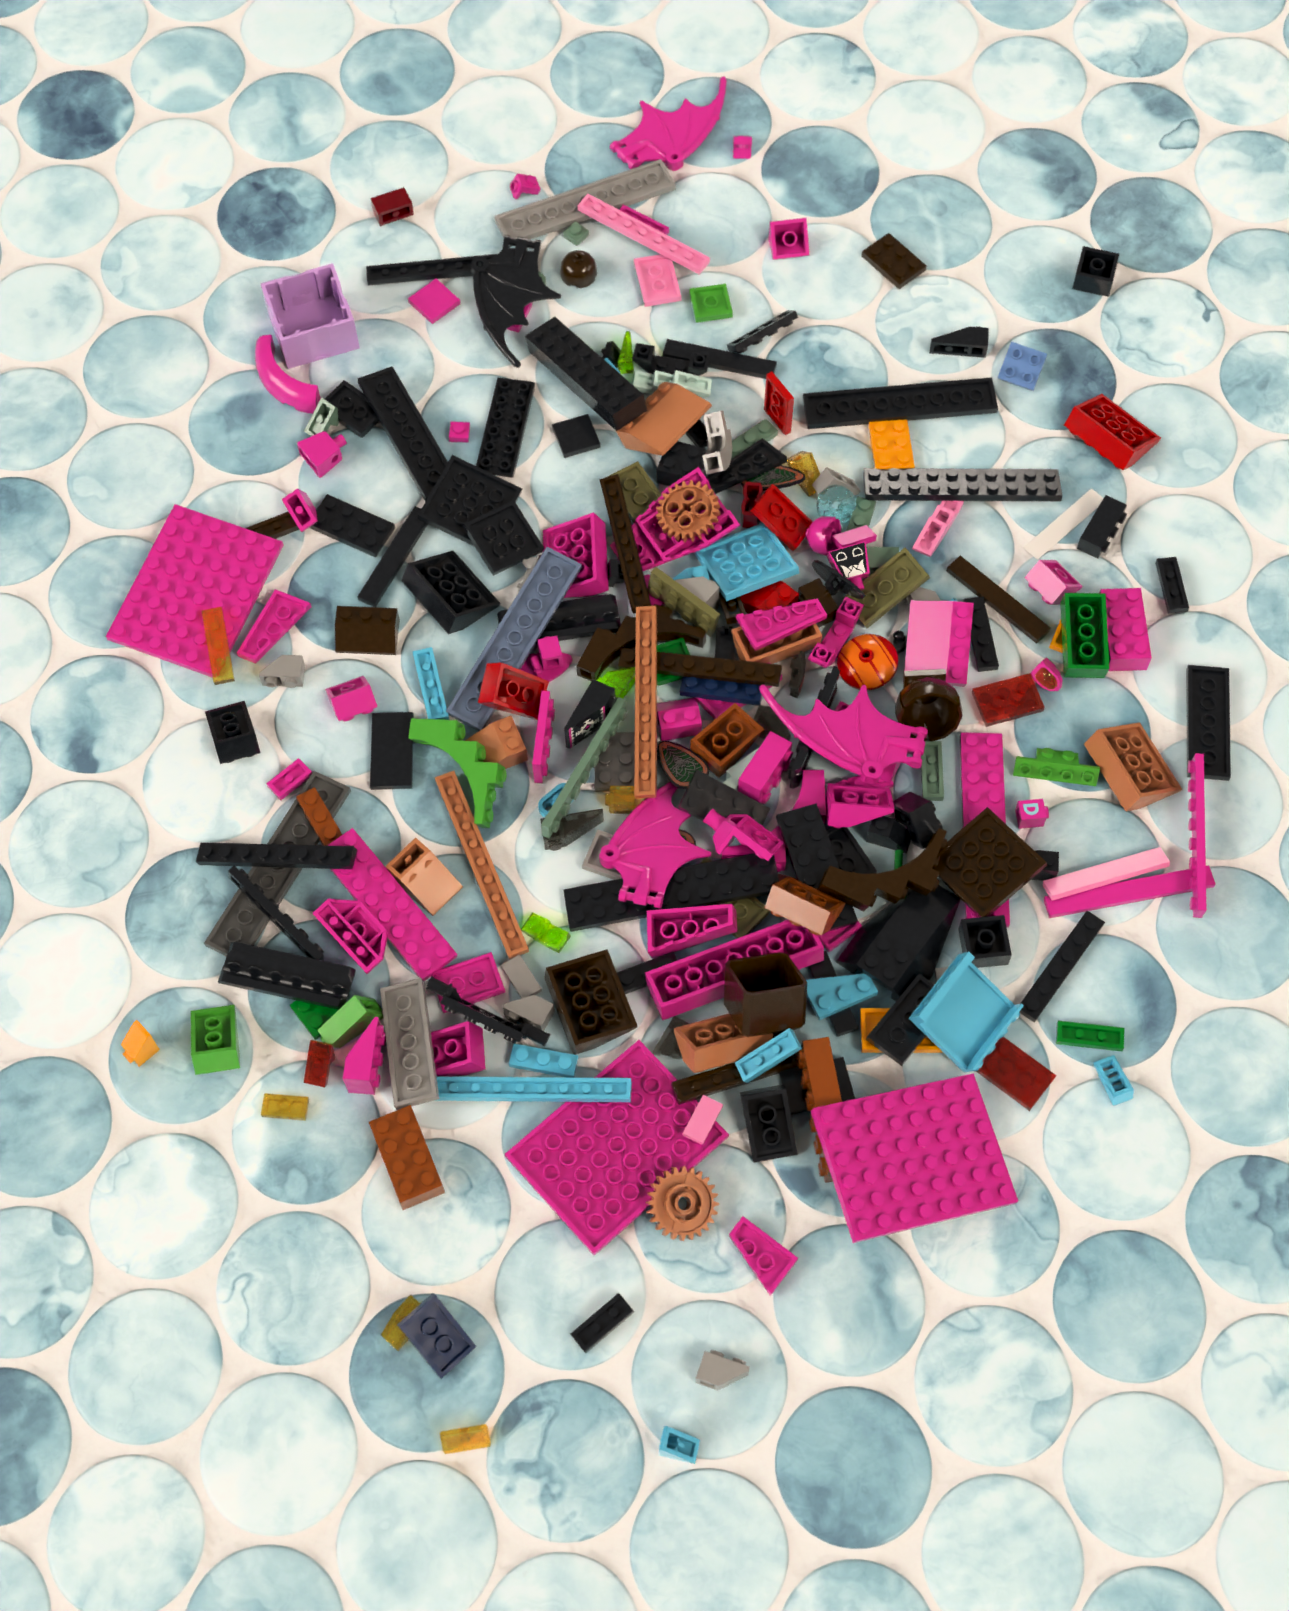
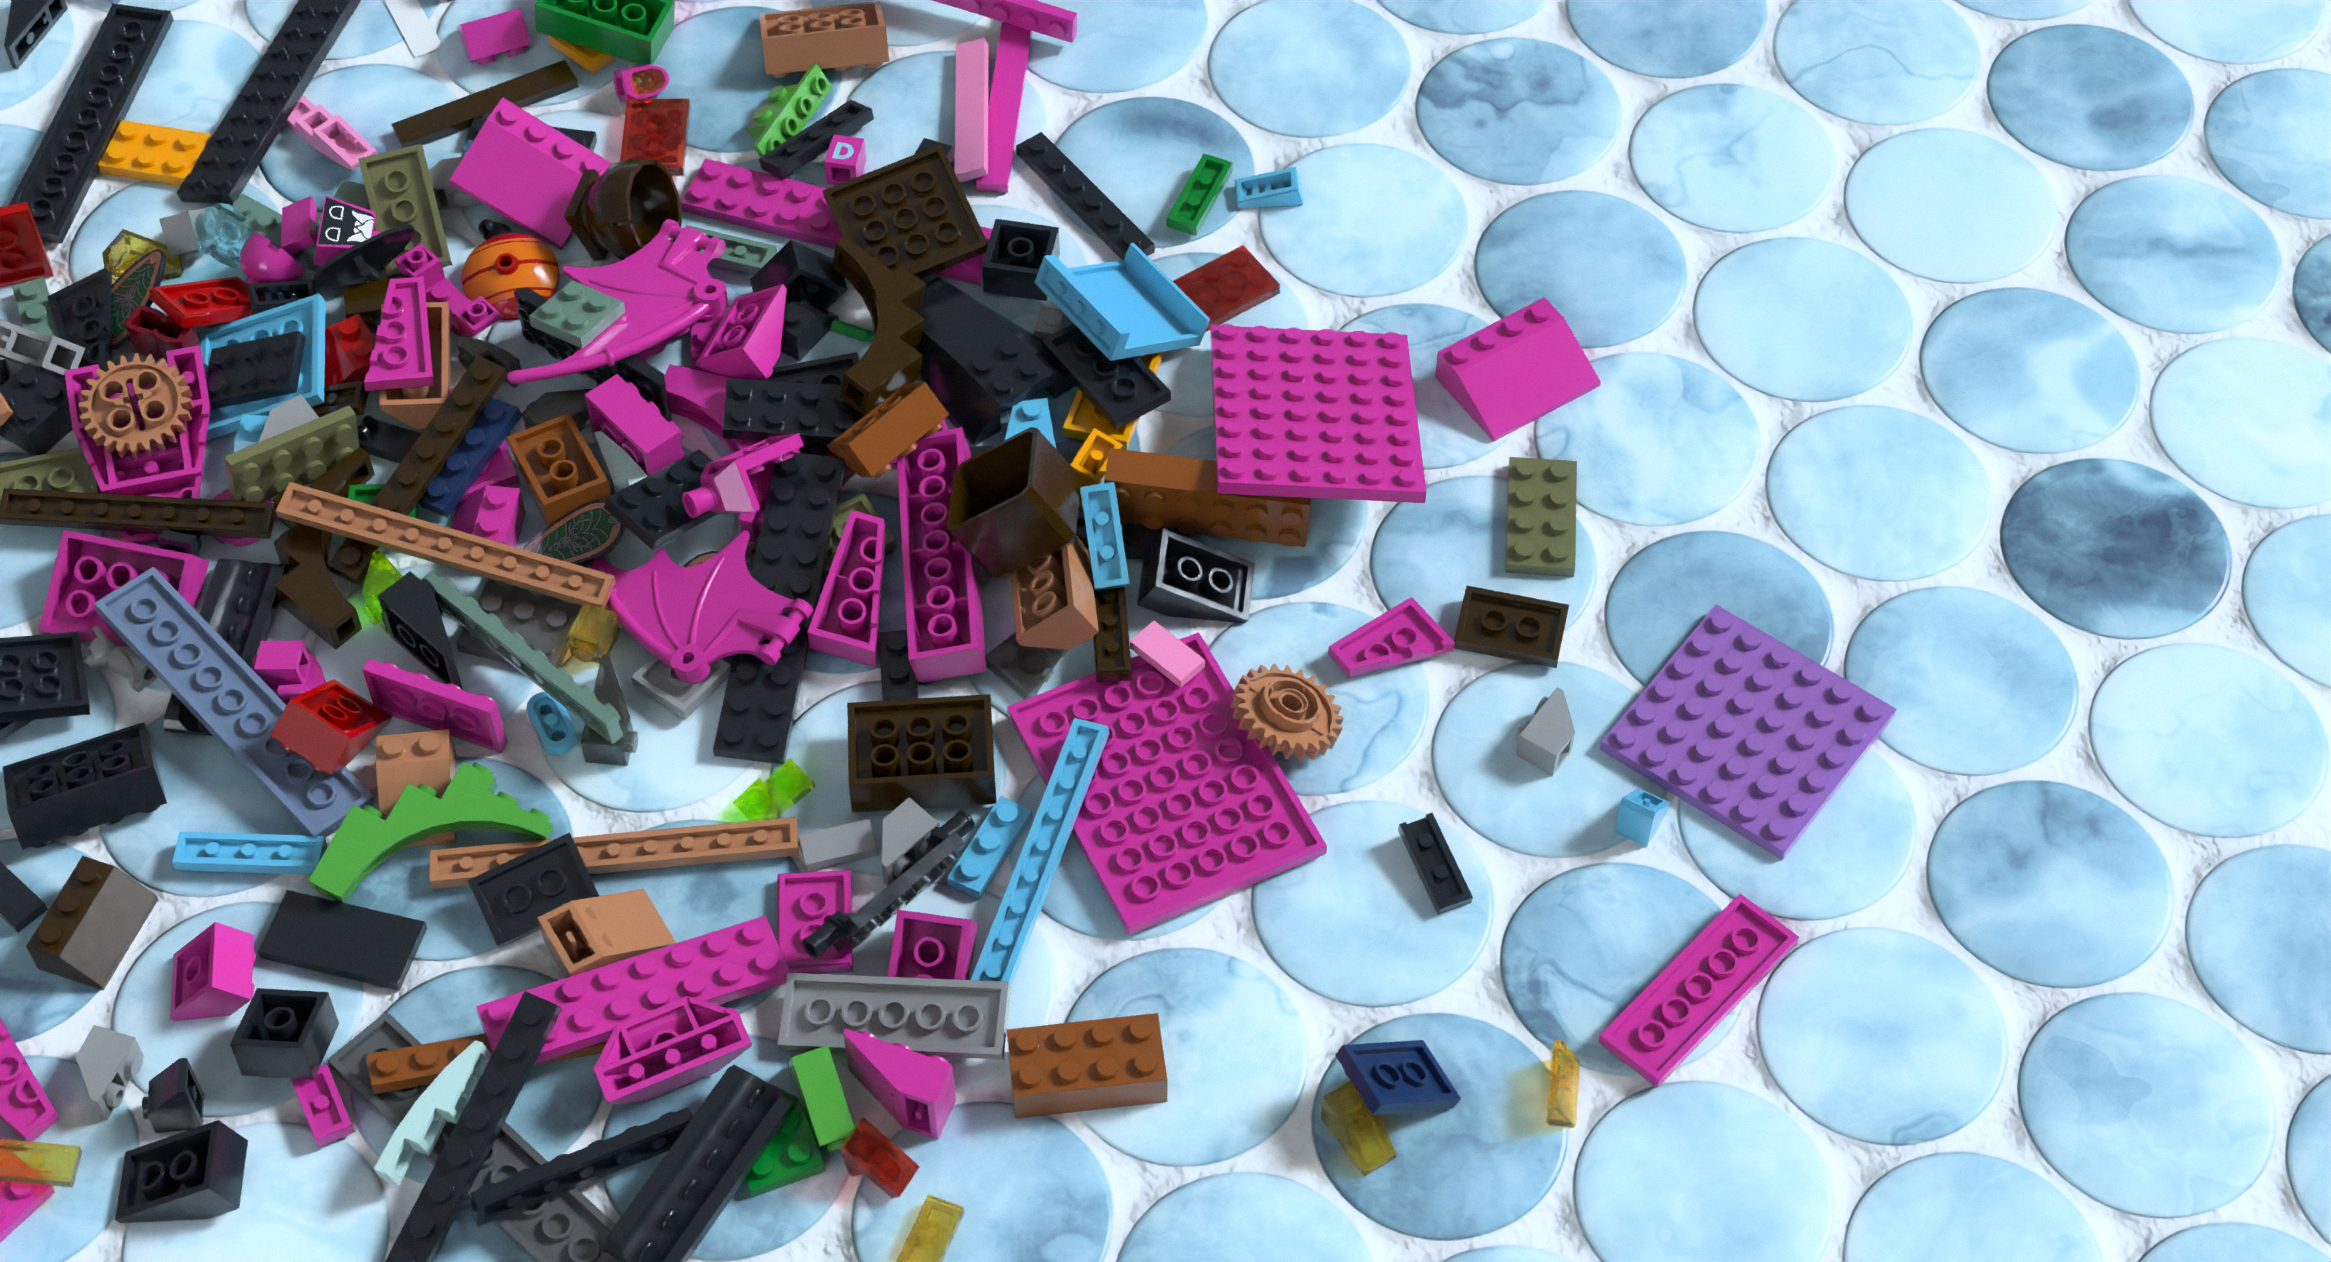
camera: 75 degrees left, 10 degrees down
(272, 711) = (174, 1099): none -> black slope
(285, 830) = (439, 1103): none -> light aqua slope
(318, 744) = (284, 1033): none -> black brick
(441, 831) = (530, 887): none -> black plate
(556, 1510) = (1698, 990): none -> dark pink plate
(737, 558) = (255, 369): none -> black plate
(767, 1504) = (1748, 731): none -> medium lavender plate
(798, 1328) = (1511, 626): none -> dark brown plate
(811, 555) = (285, 292): none -> black slope
(823, 705) = (577, 314): none -> sand green plate
(838, 1033) = (1092, 459): none -> light orange slope
(897, 1327) = (1541, 517): none -> olive plate
(1013, 1282) = (1516, 369): none -> dark pink slope
(1040, 789) = (815, 139): none -> black plate

